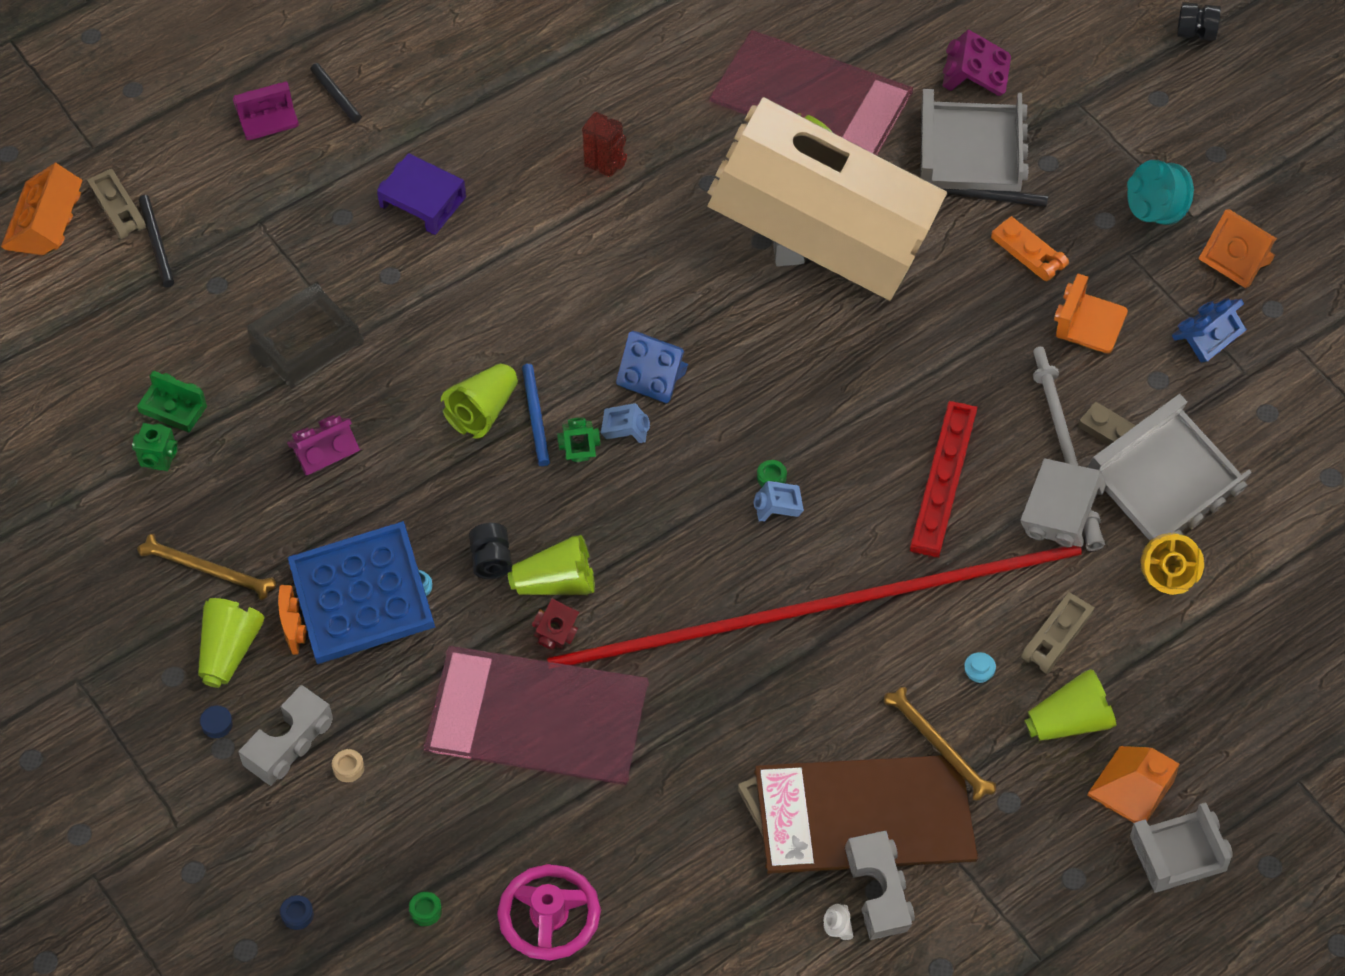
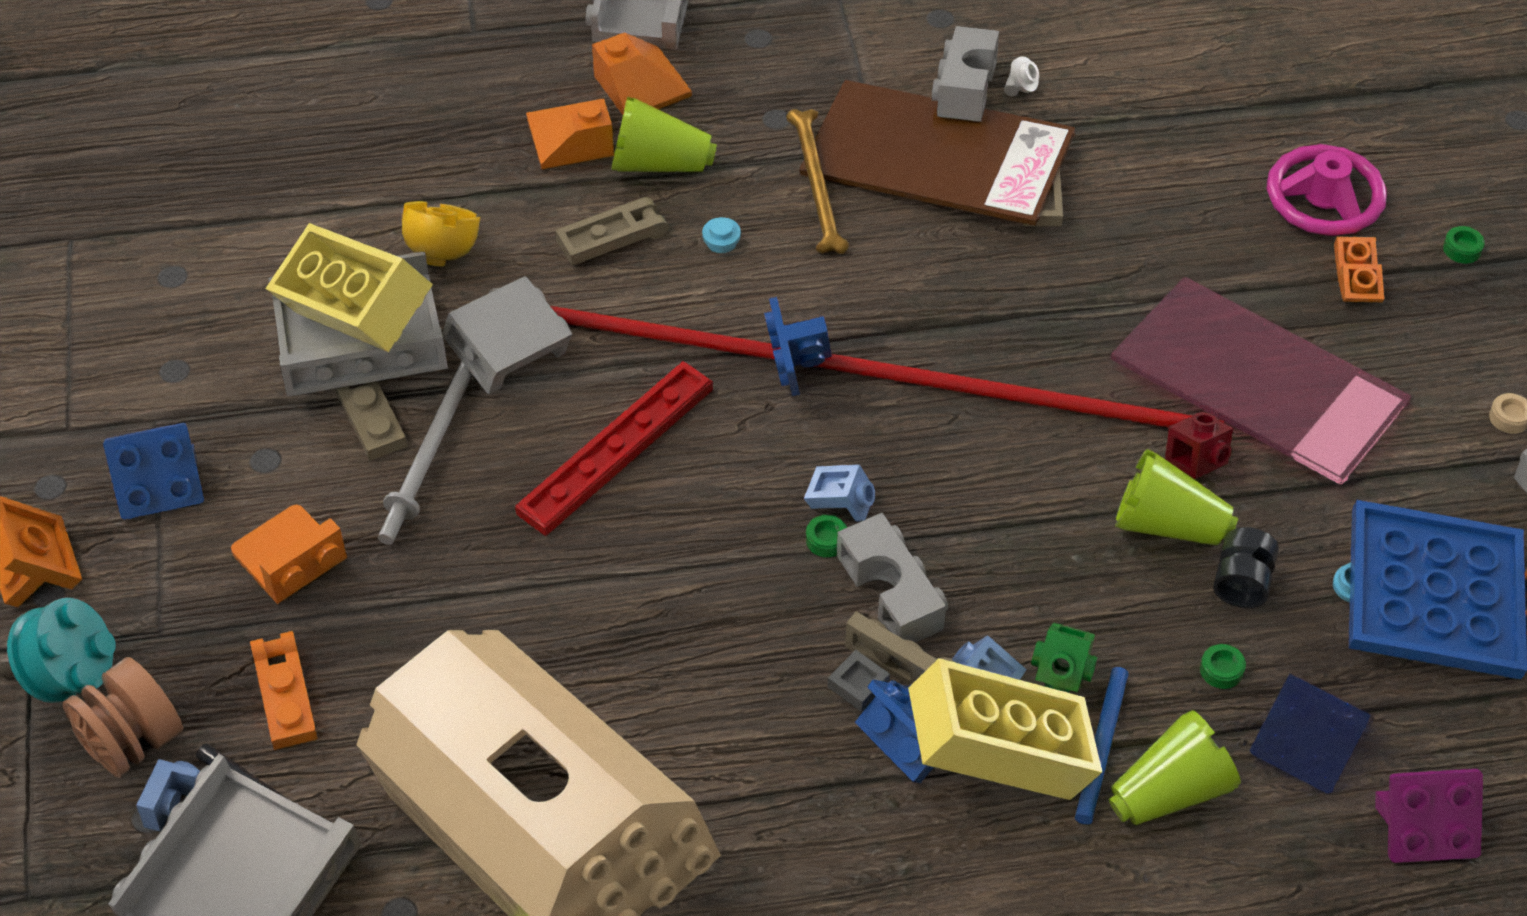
camera: 155 degrees left, 5 degrees down
(408, 471) = (1310, 734): none -> clear blue bracket
(481, 493) = (1222, 666): none -> green tile
(497, 843) = (1358, 269): none -> orange slope
(589, 355) = (1004, 730): none -> light yellow brick
(680, 406) = (893, 654): none -> dark tan plate
(696, 377) = (853, 677): none -> dark grey tile
(730, 467) = (879, 552): none -> light grey arch
(863, 565) = (799, 343): none -> blue bracket
(1044, 168) = (164, 791): none -> medium blue bracket
(1095, 177) = (131, 711): none -> nougat wheel
(1149, 711) = (572, 133): none -> orange slope
(1176, 449) = (349, 286): none -> light yellow brick

